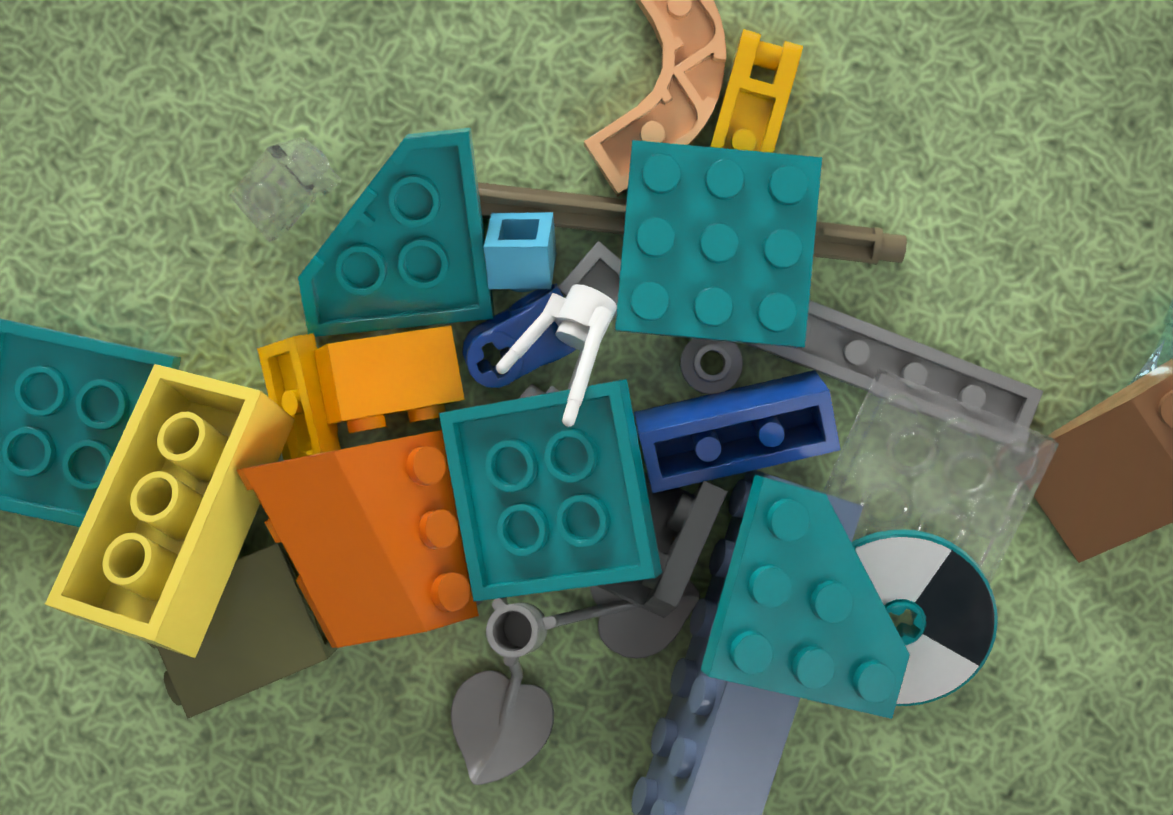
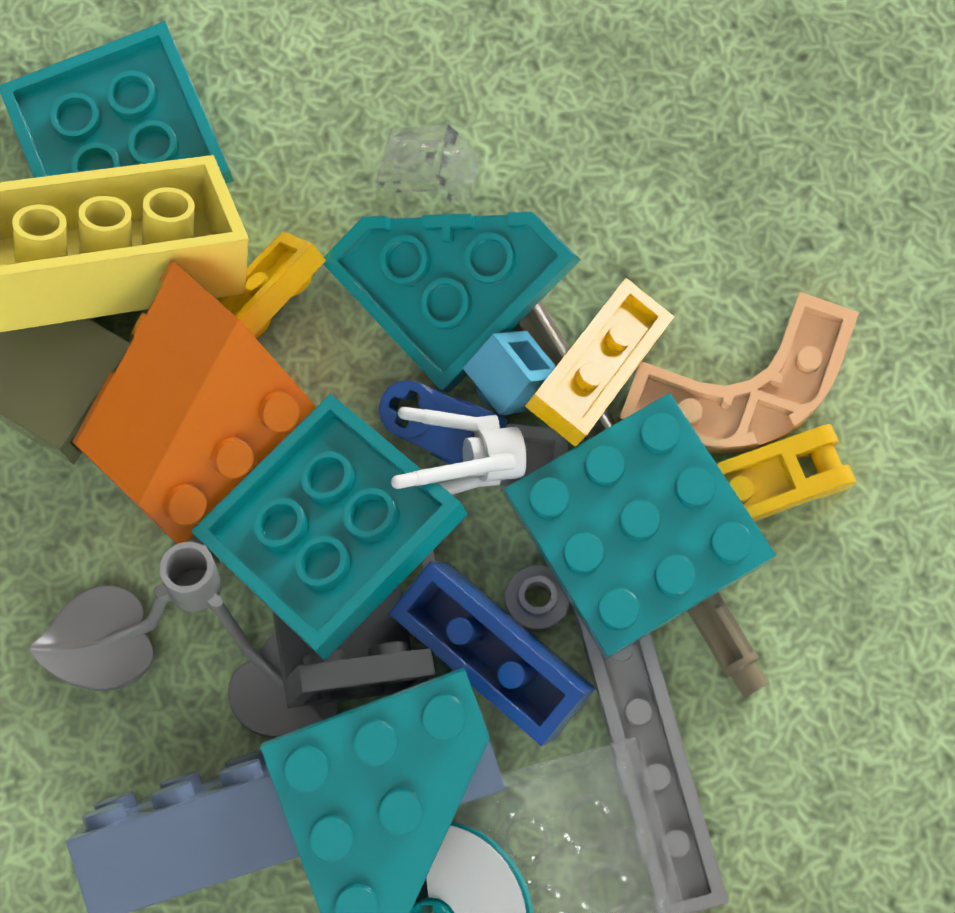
camera: 55 degrees right, 15 degrees down
(388, 376) = (332, 339): light orange brick -> none
(564, 175) = (599, 362): none -> plate

